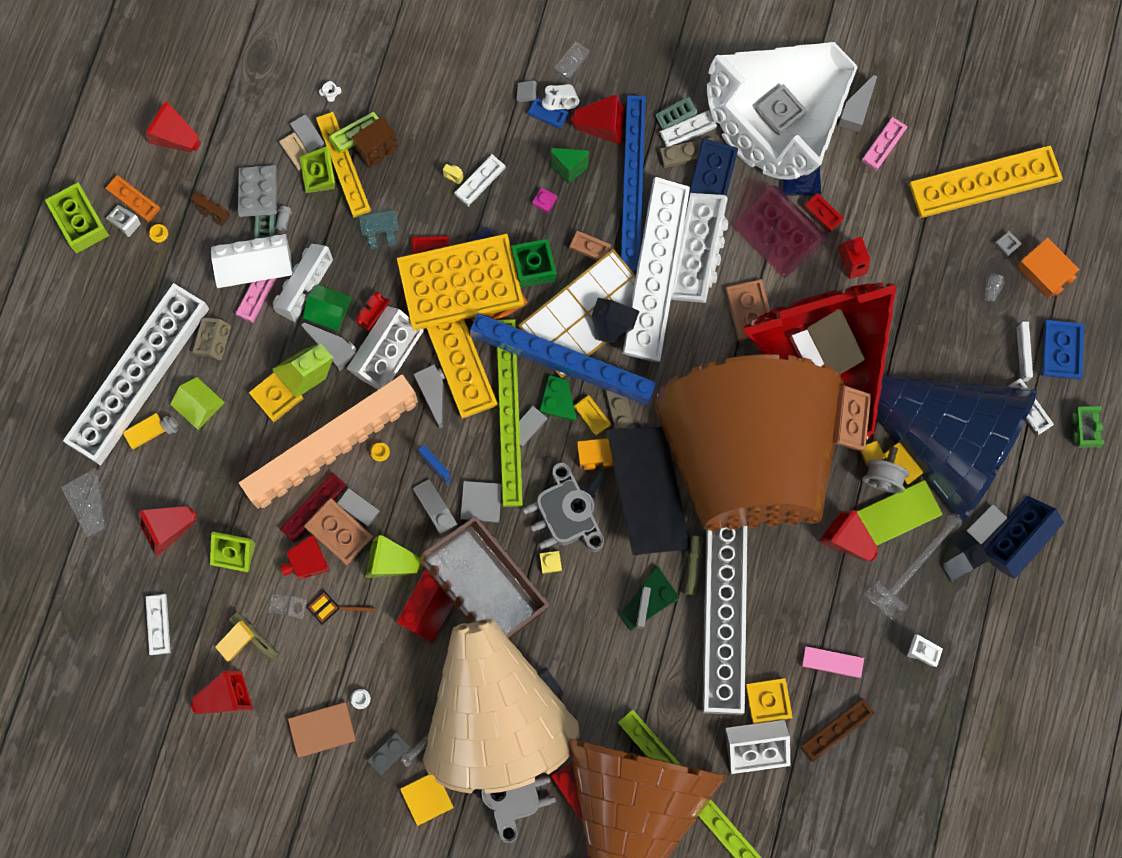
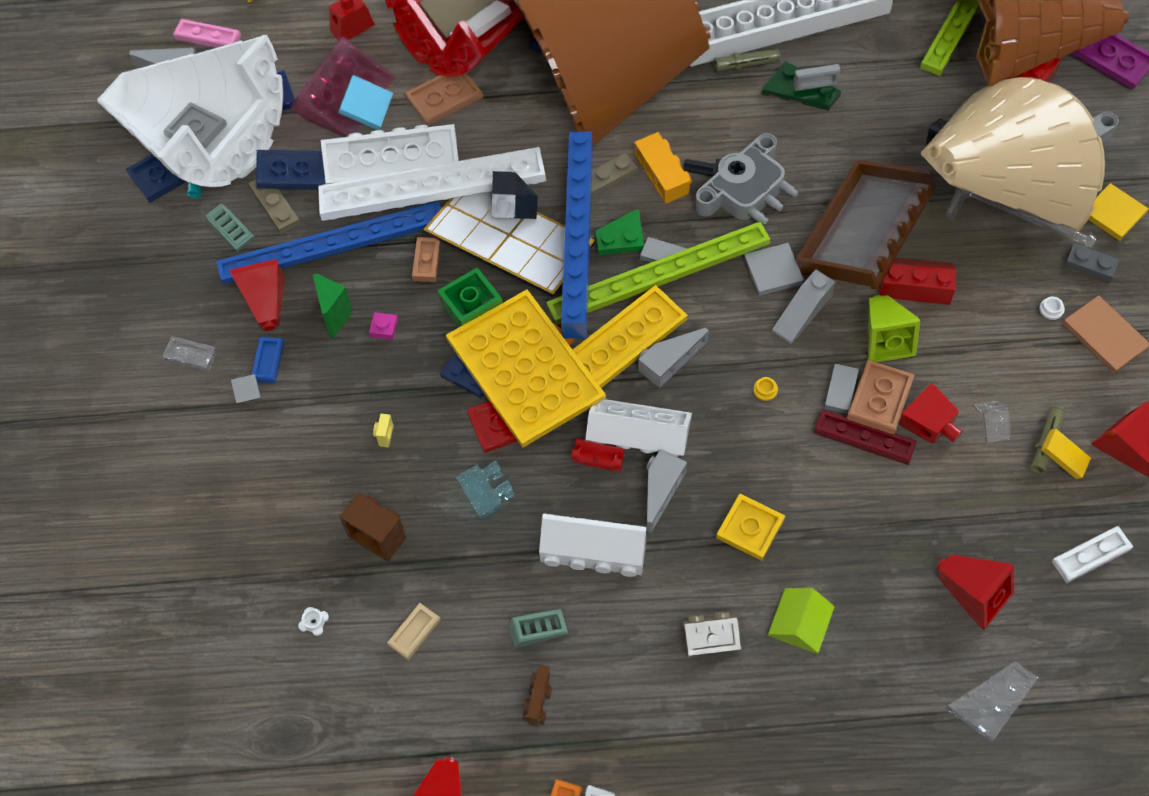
camera: 105 degrees left, 15 degrees down
(136, 374) = (804, 702): white brick -> none
(144, 431) = (868, 669): yellow tile -> none
(158, 233) = (594, 764): yellow plate -> none
(169, 425) = (846, 638): light grey plate -> none
(231, 551) = (963, 501): lime slope -> none
(251, 260) = (591, 616): white slope -> none
(254, 299) = (627, 605): bright pink tile -> none
(257, 191) = (488, 652): light grey plate -> none
(283, 218) = (513, 609): light grey pin -> none
(305, 369) = (706, 494): lime slope -> none
(307, 134) = (383, 626): light grey tile -> none
(317, 171) = (434, 583): lime slope -> none
(324, 607) = (970, 383): piece -> none
(326, 307) = (612, 504): green slope -> none
(329, 442) = (785, 436): light nougat brick -> none
(343, 138) = (366, 558): lime plate -> none
(344, 168) = (412, 564): yellow plate -> none
(435, 464) = (758, 316): blue tile -> none
(479, 180) = (380, 402): white tile -> none
(550, 562) = (806, 184): light yellow plate -> none
(561, 96) = (245, 345): white piece -> none
(592, 415) = (625, 197): yellow tile -> none
(648, 490) = (689, 111): black piece -> none
(688, 129) = (246, 212): white tile -> none
(759, 244) = (365, 102): none -> medium azure tile
(823, 212) = (307, 61): red plate -> none

